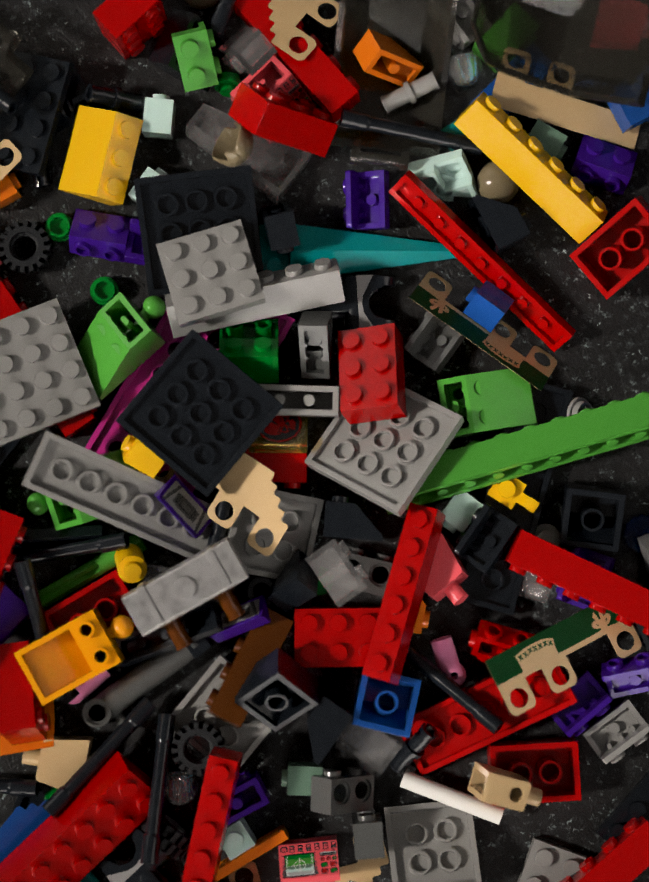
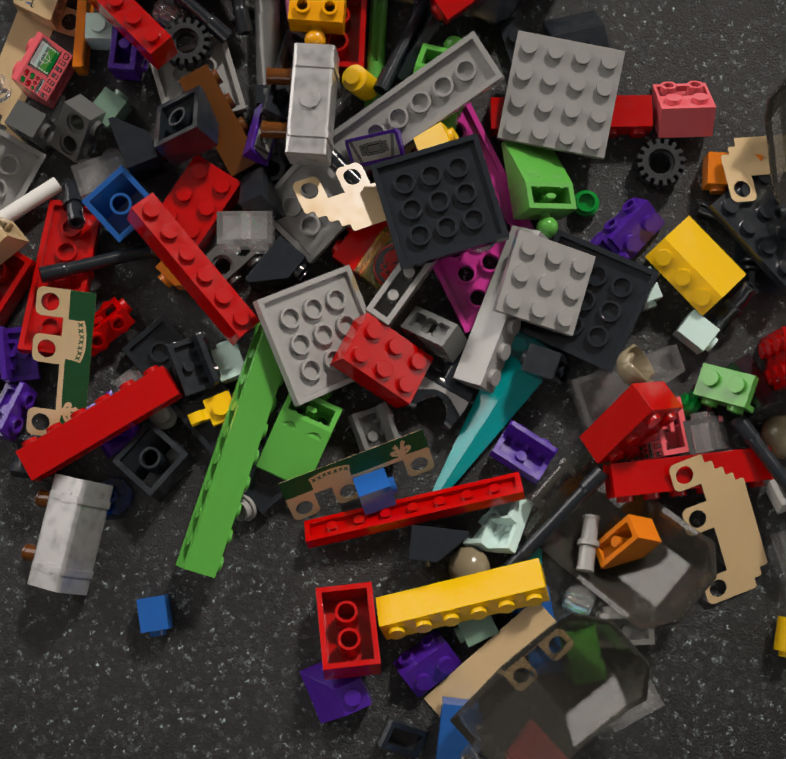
camera: 130 degrees right, 5 degrees down
(58, 227) = (660, 200): green plate -> none
(253, 348) = (462, 281): green slope -> none
(446, 574) = (188, 317): coral torso -> none
(447, 658) = (123, 277): bright pink piece -> none

